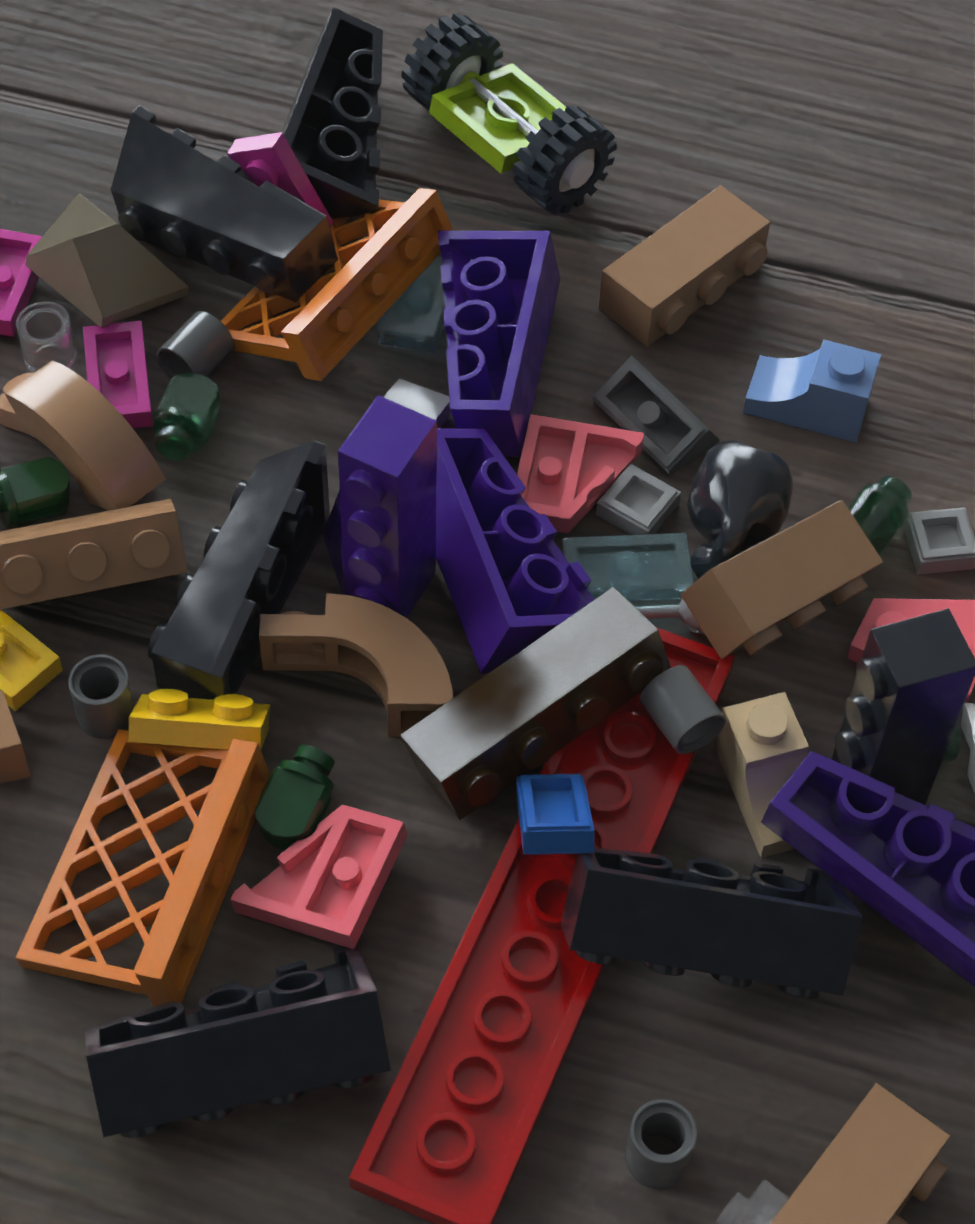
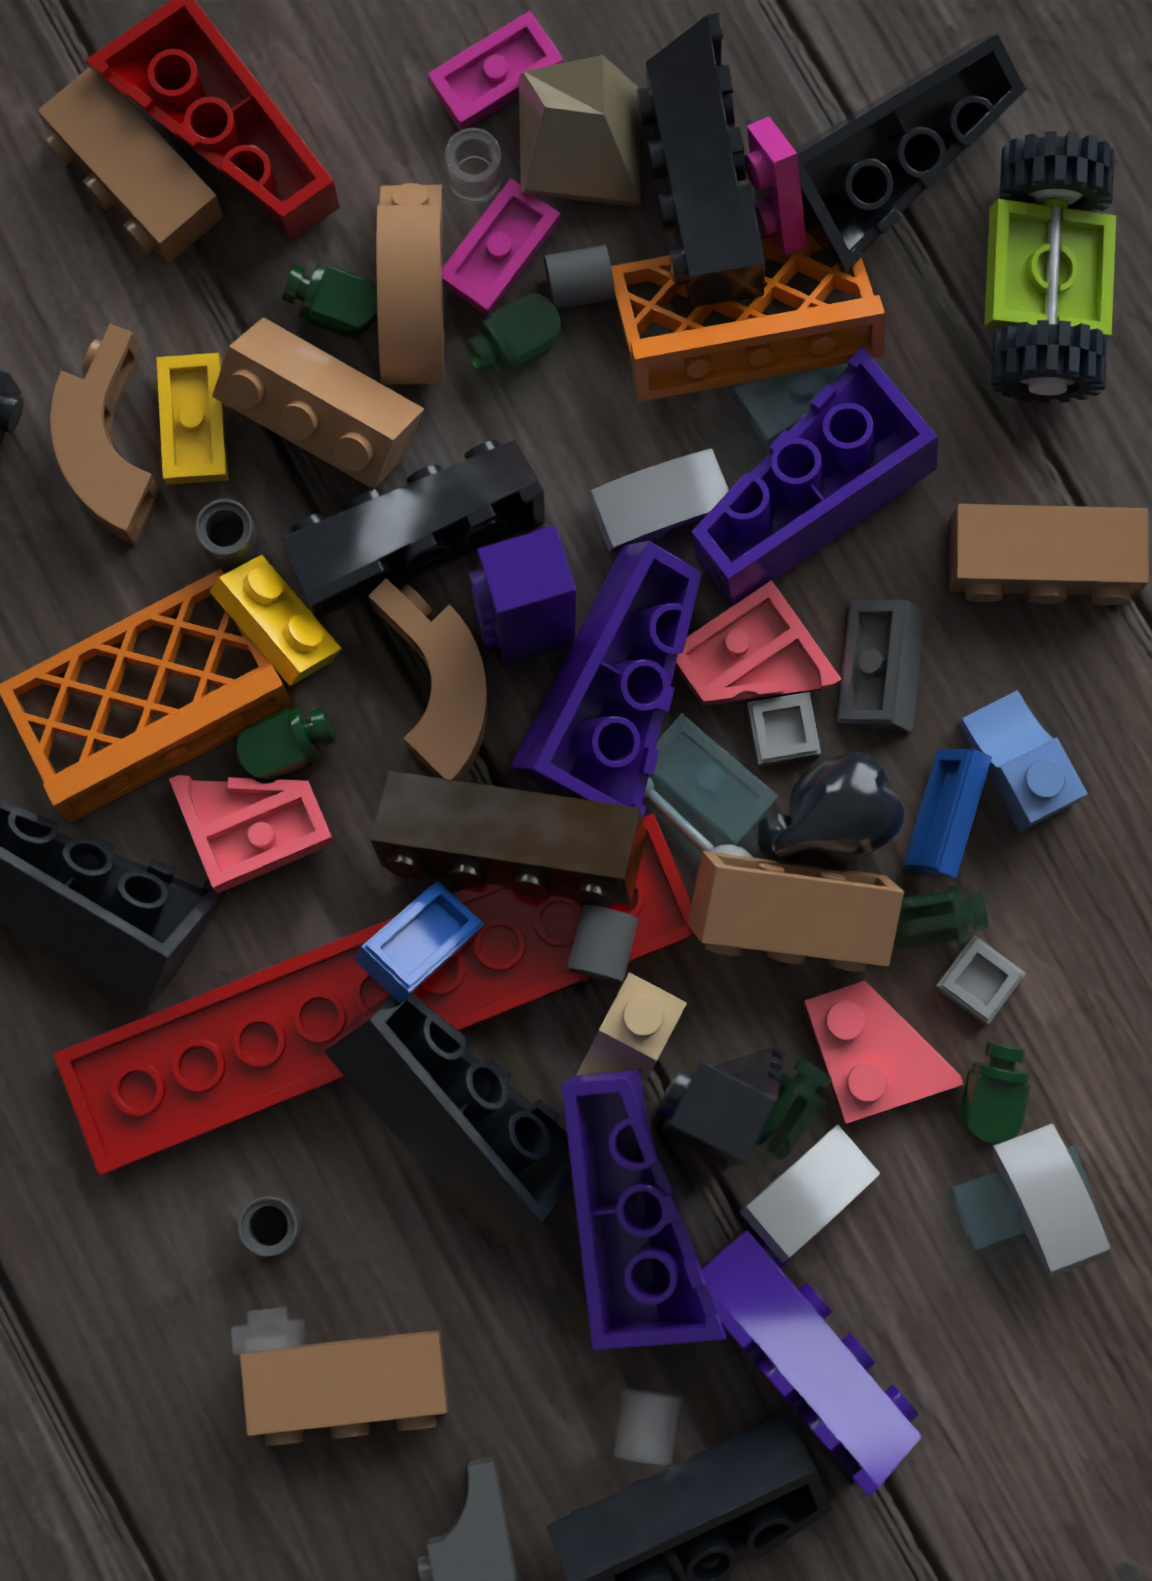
camera: 45 degrees right, 25 degrees up
(815, 462) = (947, 813): none -> blue tile

